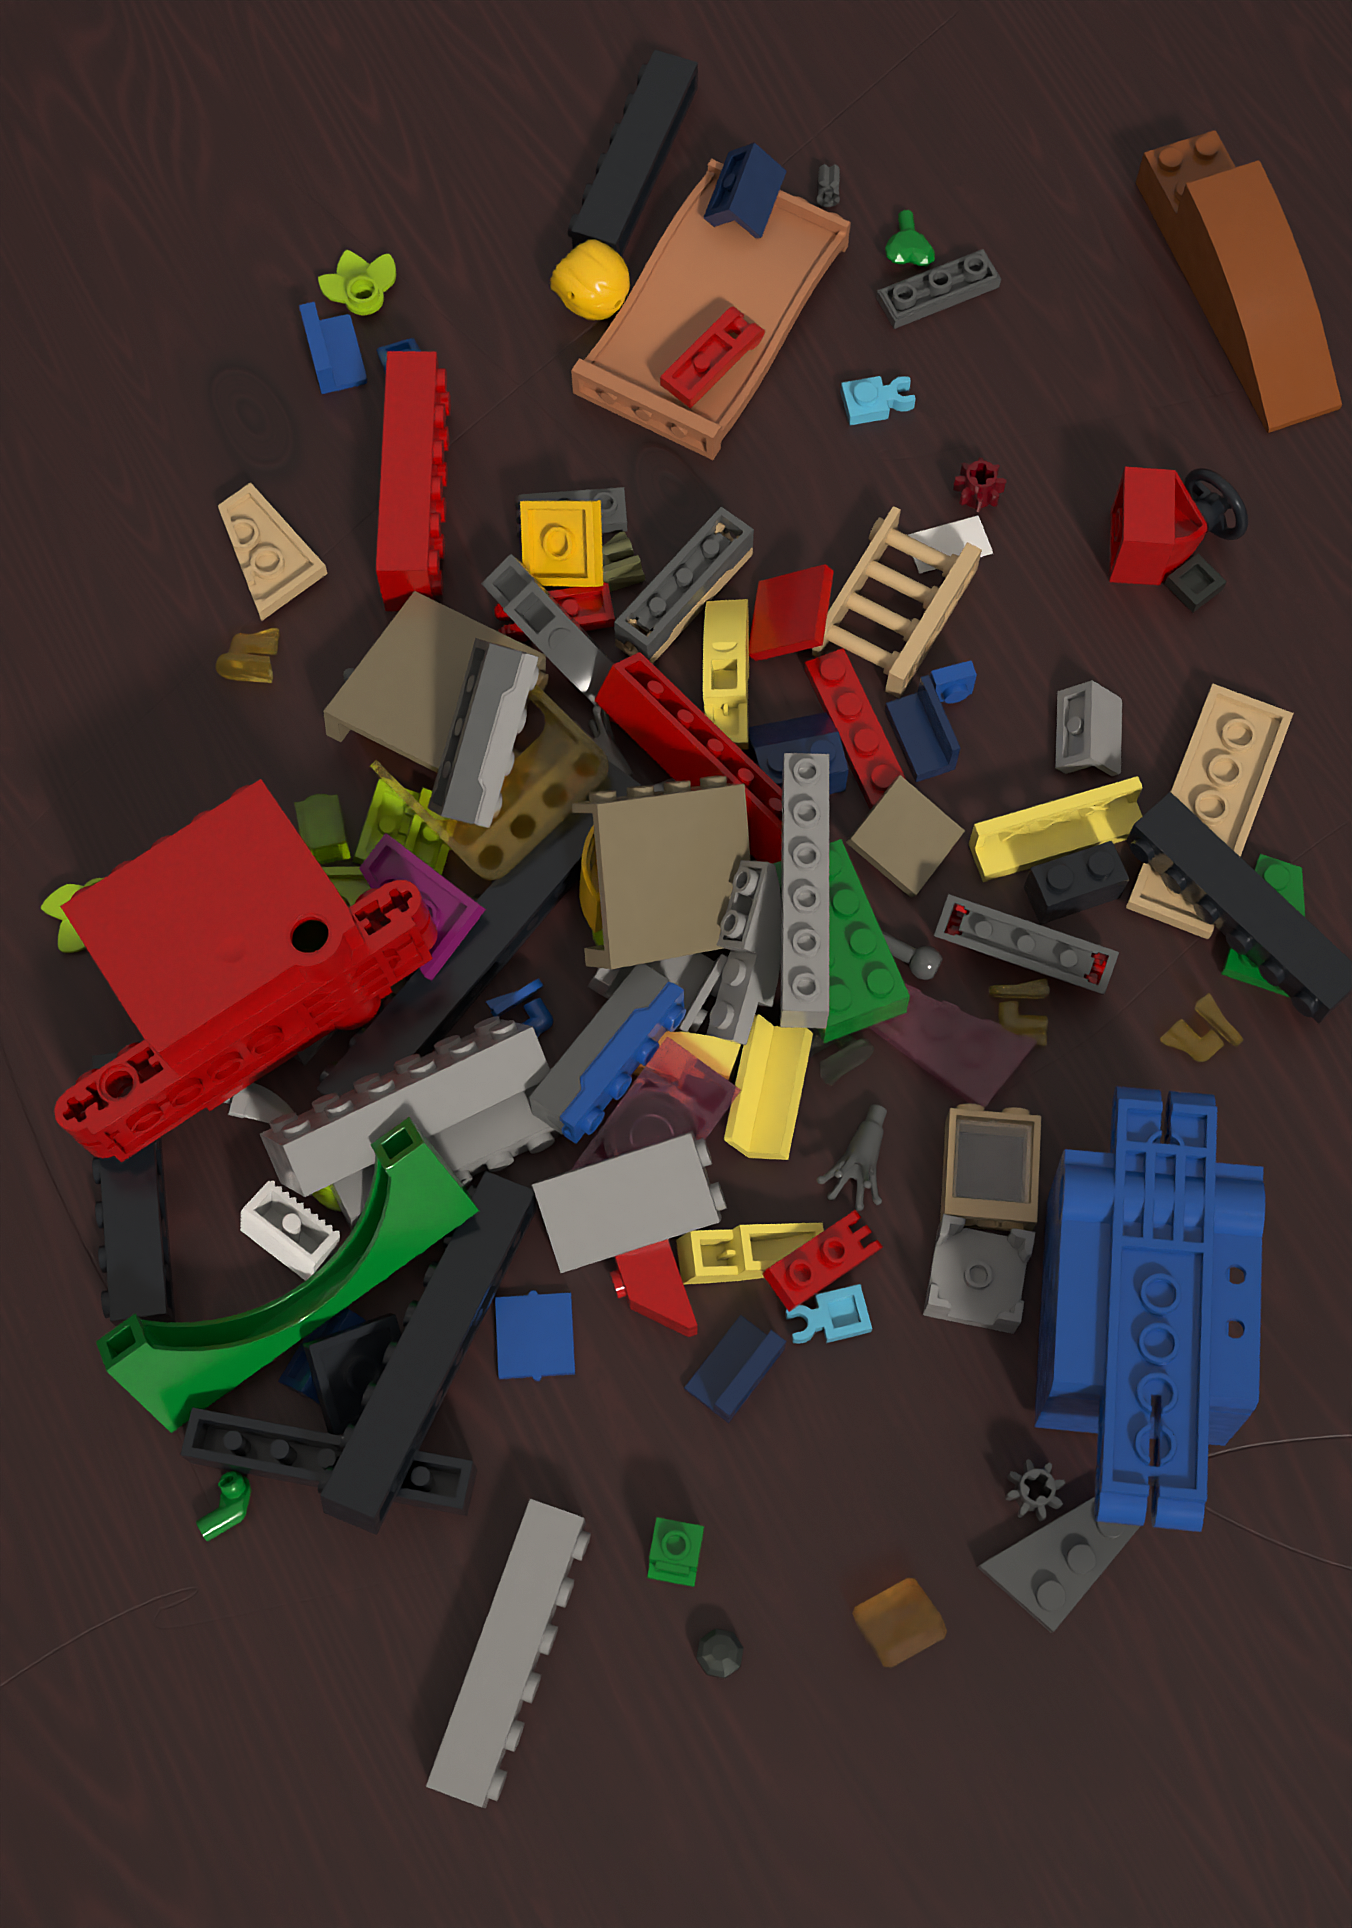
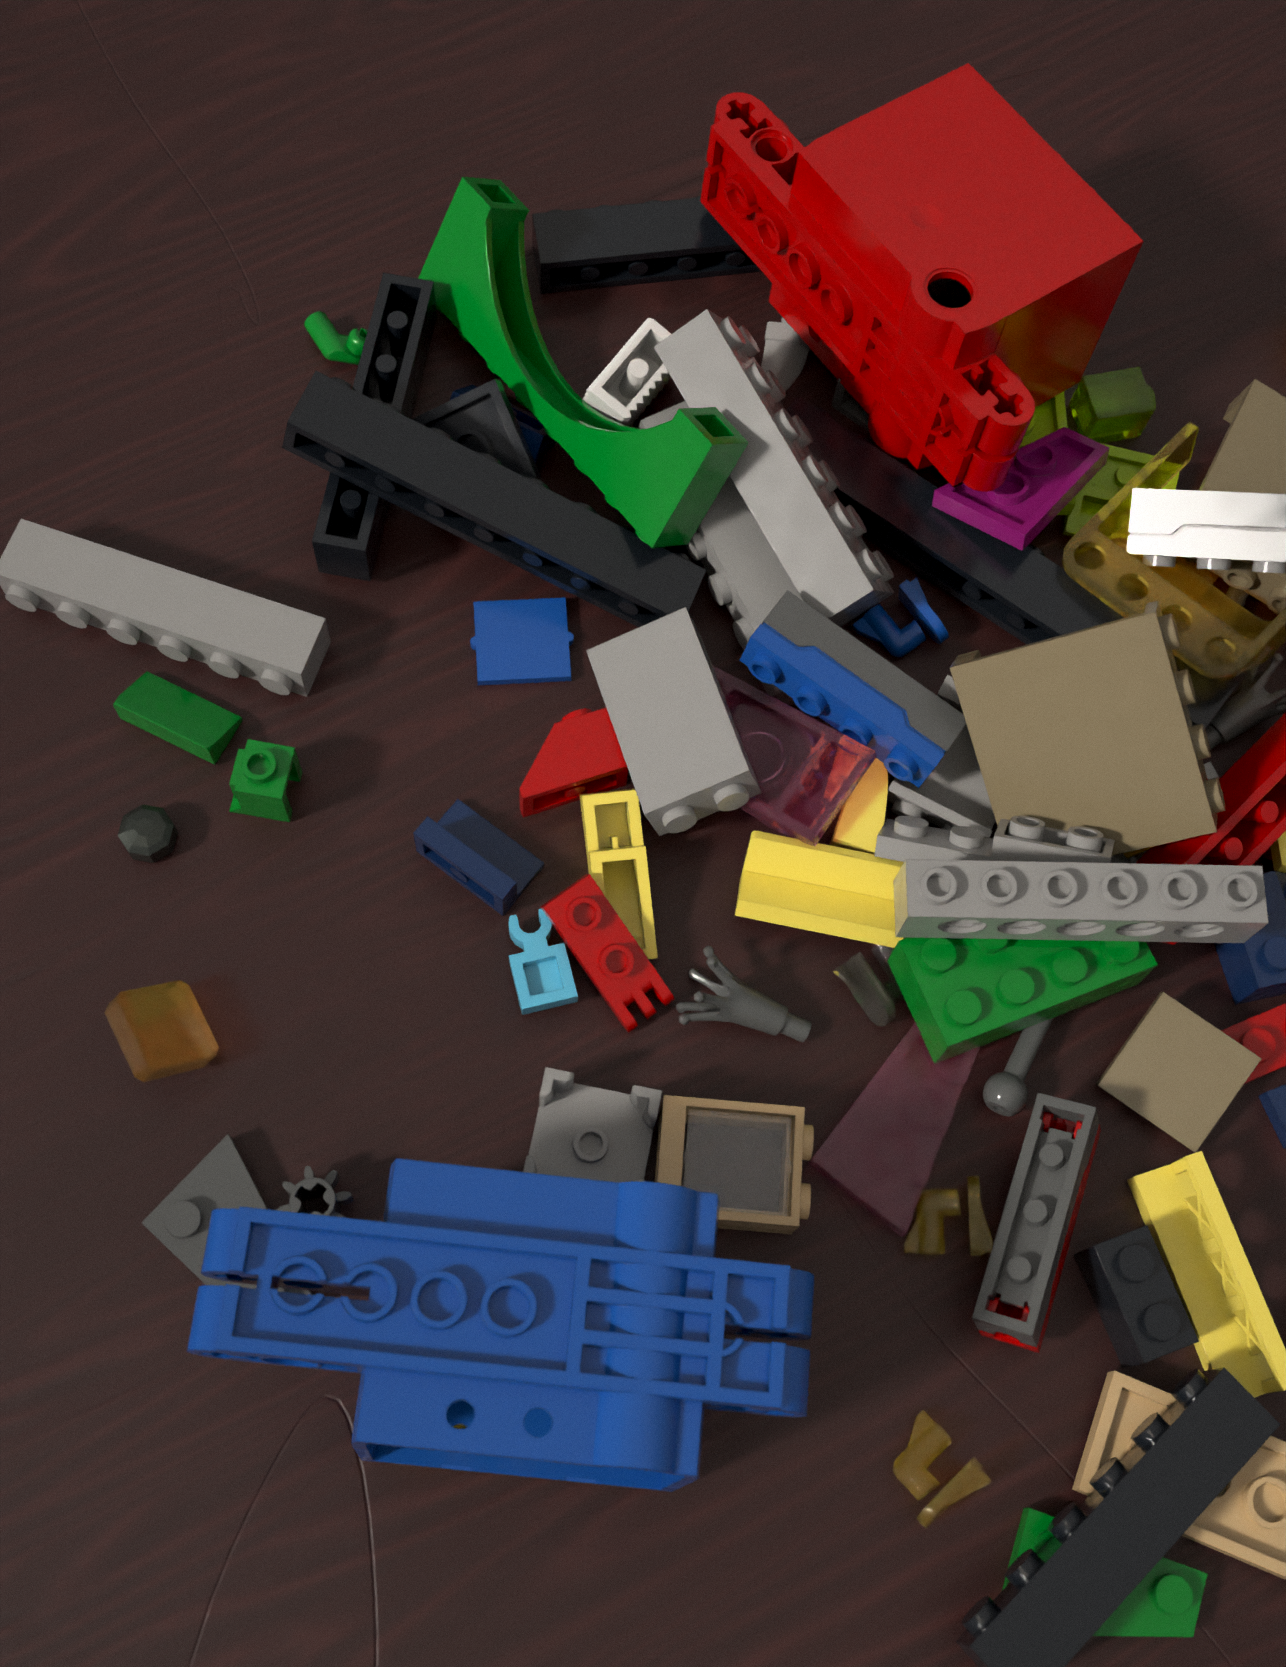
camera: 80 degrees right, 0 degrees up
(608, 1634) = (177, 716): none -> green slope

